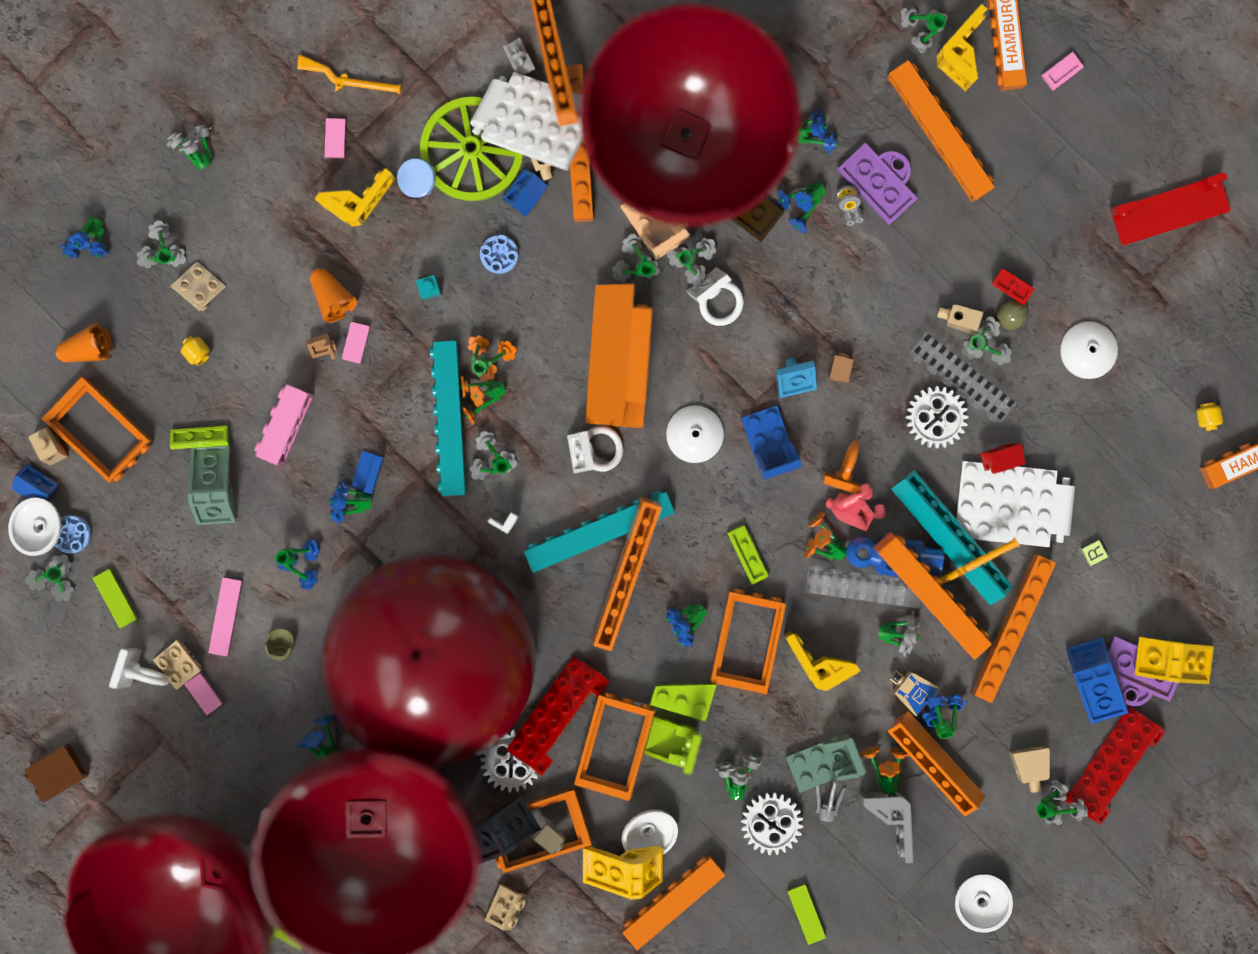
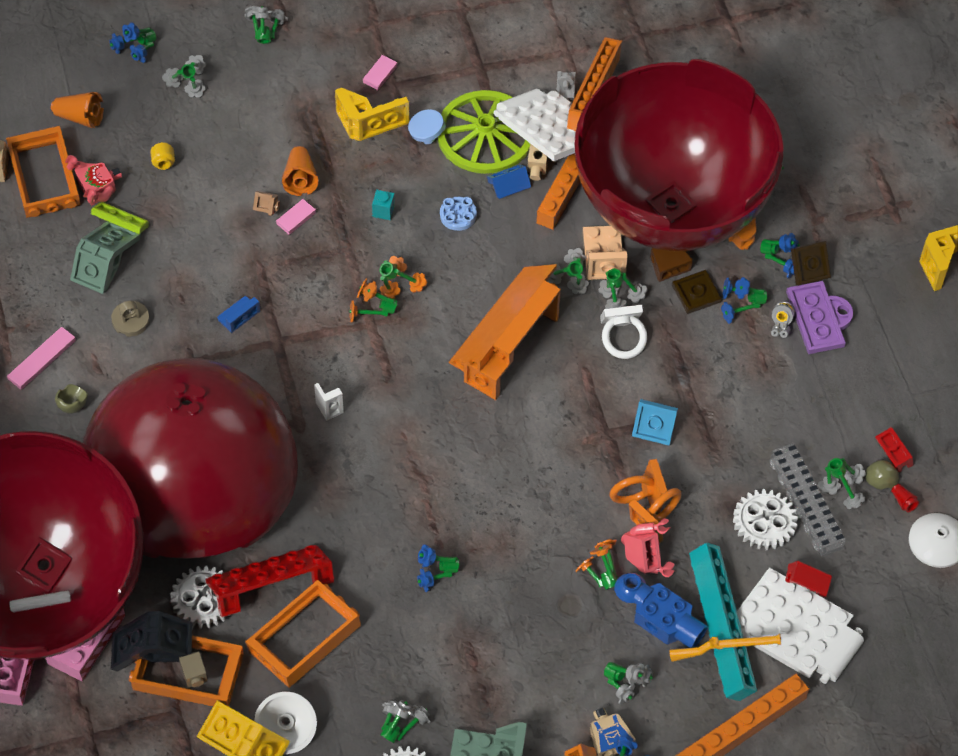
camera: 30 degrees right, 30 degrees down
(152, 413) = (94, 179): none -> coral torso
(198, 286) = (197, 116): tan hinge -> none
(276, 532) = (130, 318): none -> dark tan tile
(284, 425) = (195, 238): bright pink brick -> none
(287, 560) = (124, 343): plant -> none
(306, 63) = (394, 16): light orange piece -> none
(338, 502) = (208, 314): plant -> none
(388, 859) = (40, 601): none -> light grey axle
(449, 418) = (334, 307): teal brick -> none
(501, 463) = (359, 363): light grey plant -> none
(506, 908) = (112, 719): tan bracket -> none
(582, 450) = (431, 384): white tile -> none
(590, 534) = (405, 455): teal brick -> none
(626, 573) = (406, 491): orange brick -> none
(673, 743) = (360, 657): lime bracket -> none
(680, 434) = (535, 435): white dish -> none
(685, 698) = (393, 627): lime wedge -> none
(741, 682) = (454, 644): orange door -> none
(748, 554) = (525, 544): lime tile -> none
(770, 443) = (600, 463): blue bracket -> none
(827, 446) = (651, 482): none -> orange tile
(834, 670) = (546, 673): yellow bracket -> none
(840, 368) = (699, 437): medium nougat brick -> none
(847, 132) = (810, 263): none -> dark brown tile
(859, 588) = (614, 623): clear brick -> none
(930, 593) = (675, 653): orange brick -> none
(935, 22) = (933, 218): plant -> none
(940, 131) = (894, 306): orange brick -> none
(970, 318) = (833, 446): tan torso -> none
(1043, 327) = (905, 498): none -> red cone
(1094, 553) = (852, 709): yellowish green tile -> none

